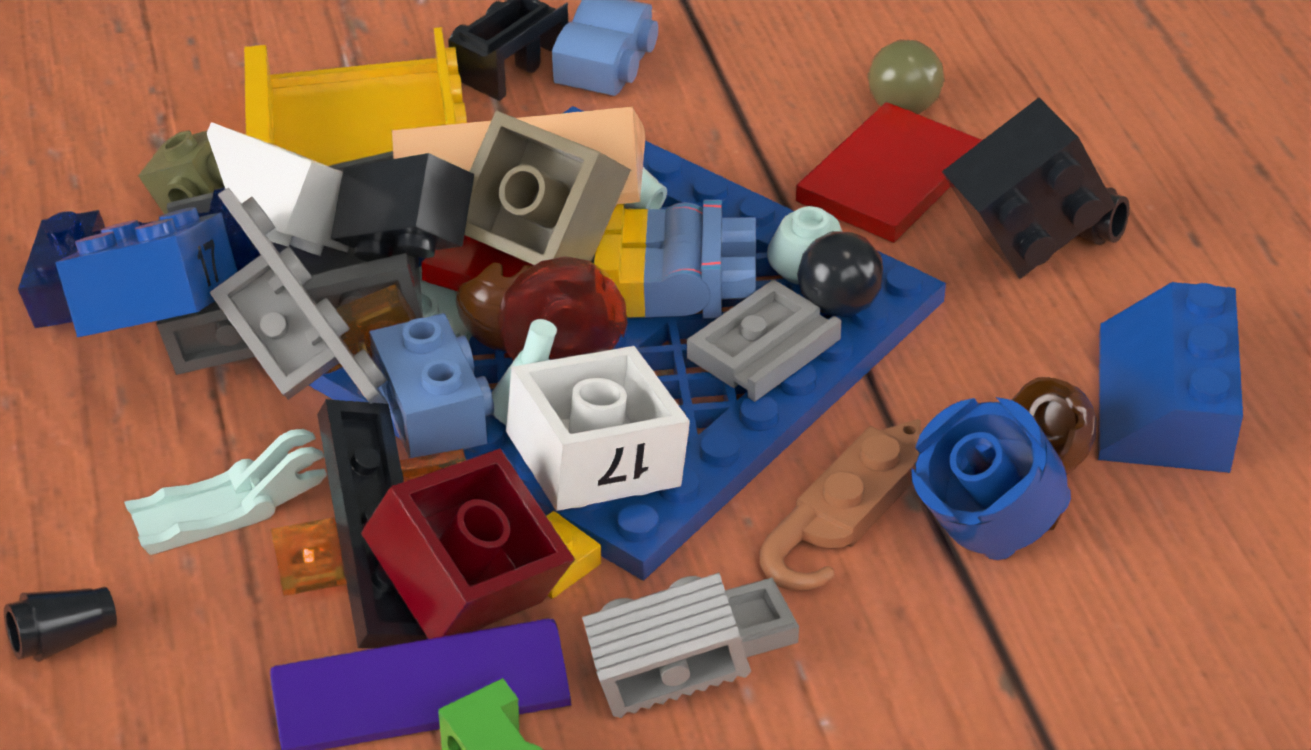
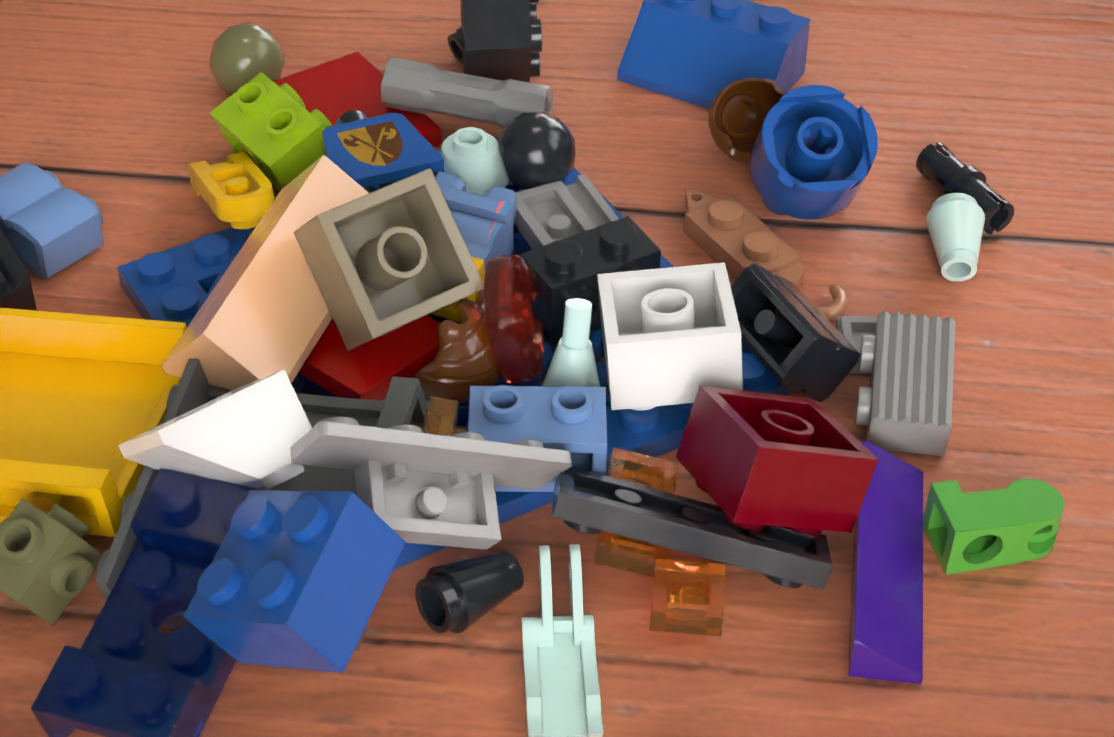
camera: 70 degrees left, 0 degrees up
(261, 412) = (466, 590): none -> black cone
(402, 207) = (342, 351): black brick -> none
(691, 360) = (571, 267): none -> black brick
(695, 528) = (790, 334): none -> black brick
(701, 125) = (233, 189): none -> yellow plate
(756, 179) = (379, 149): none -> torso
(793, 126) = (272, 128): none -> lime brick
(935, 245) = (427, 89): none -> light grey axle
(968, 647) = (956, 234): none -> light aqua cone
(1075, 642) = (953, 176): none -> black pin

